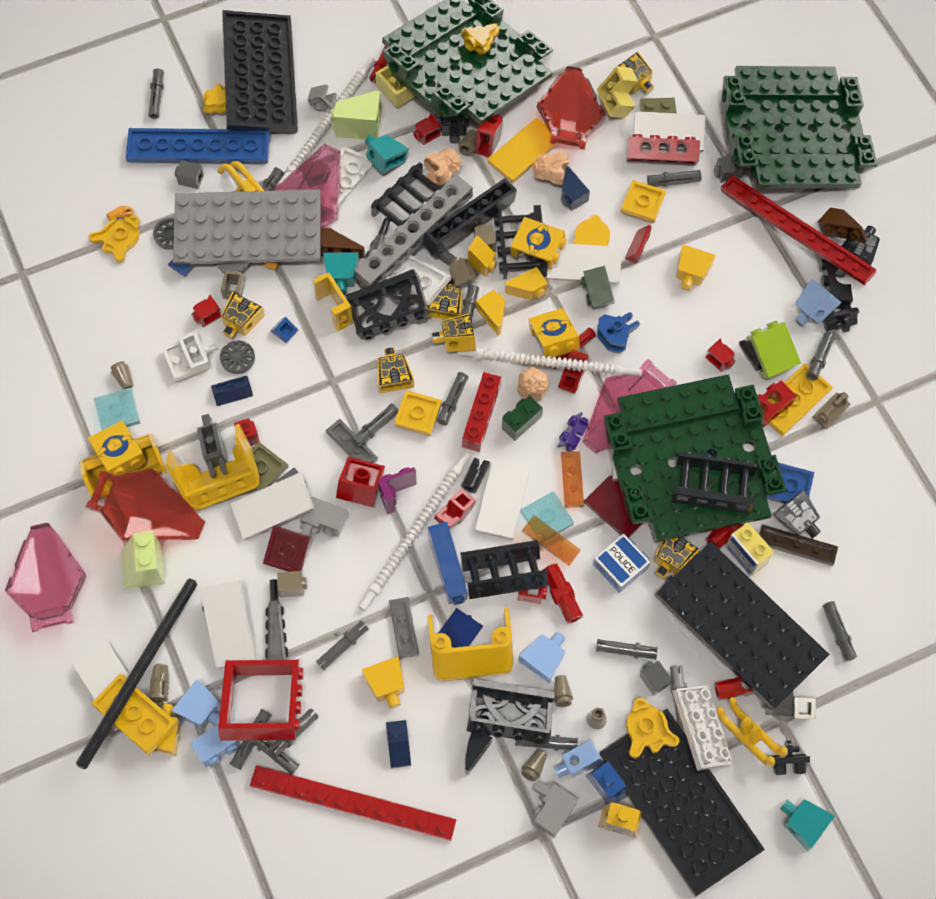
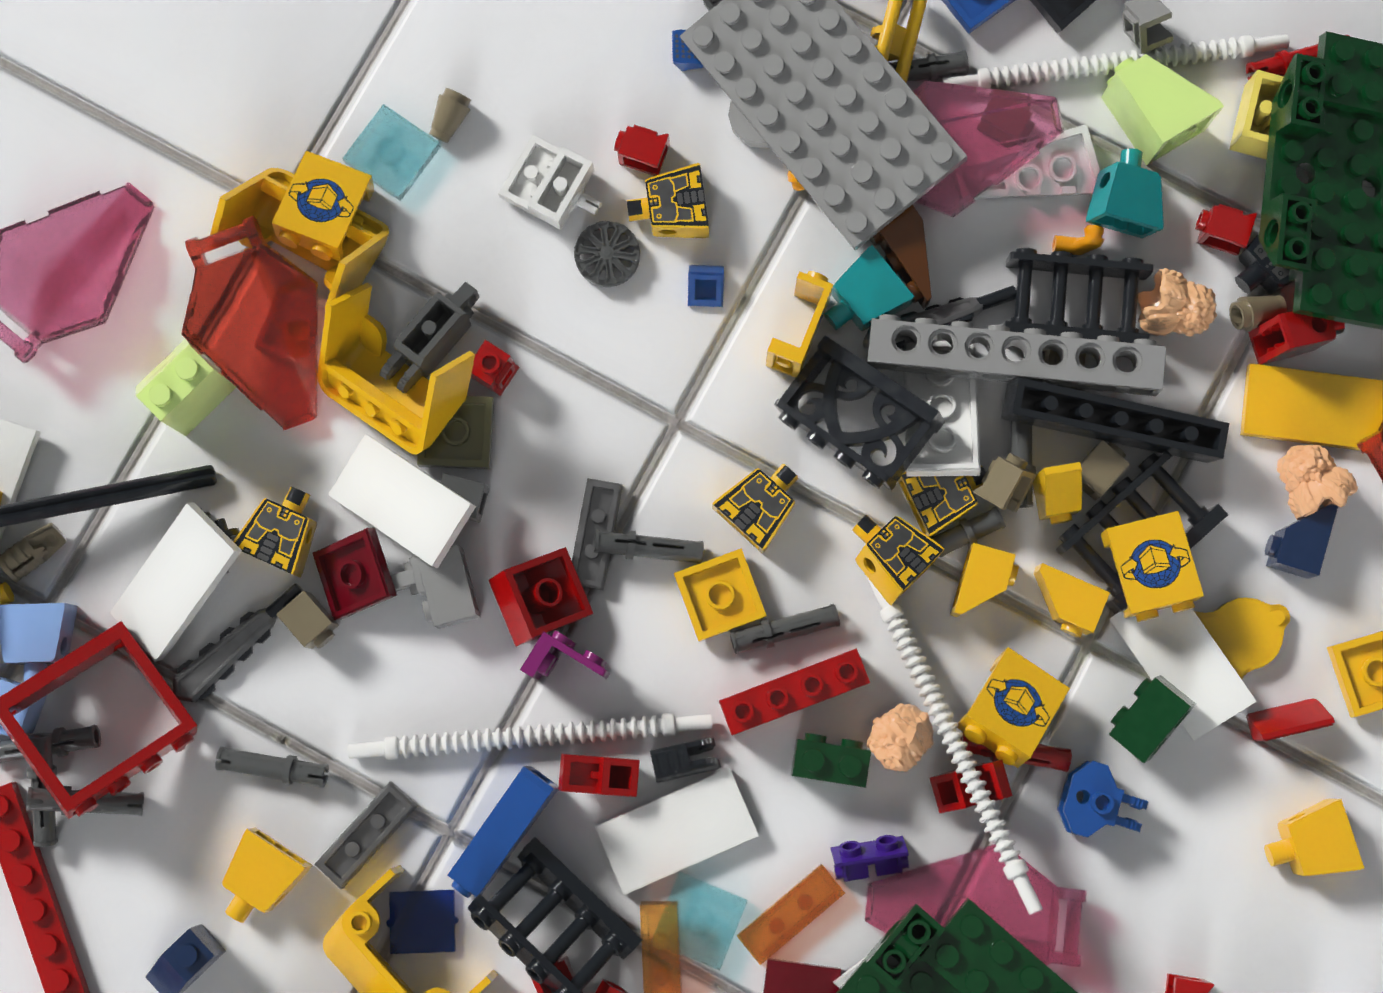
camera: 60 degrees right, 15 degrees up
(232, 390) = (549, 289): dark blue slope -> none
(235, 278) = (712, 140): dark tan window -> none
(244, 567) = (280, 533): none -> torso
(390, 176) = (1080, 245): none -> light orange arm

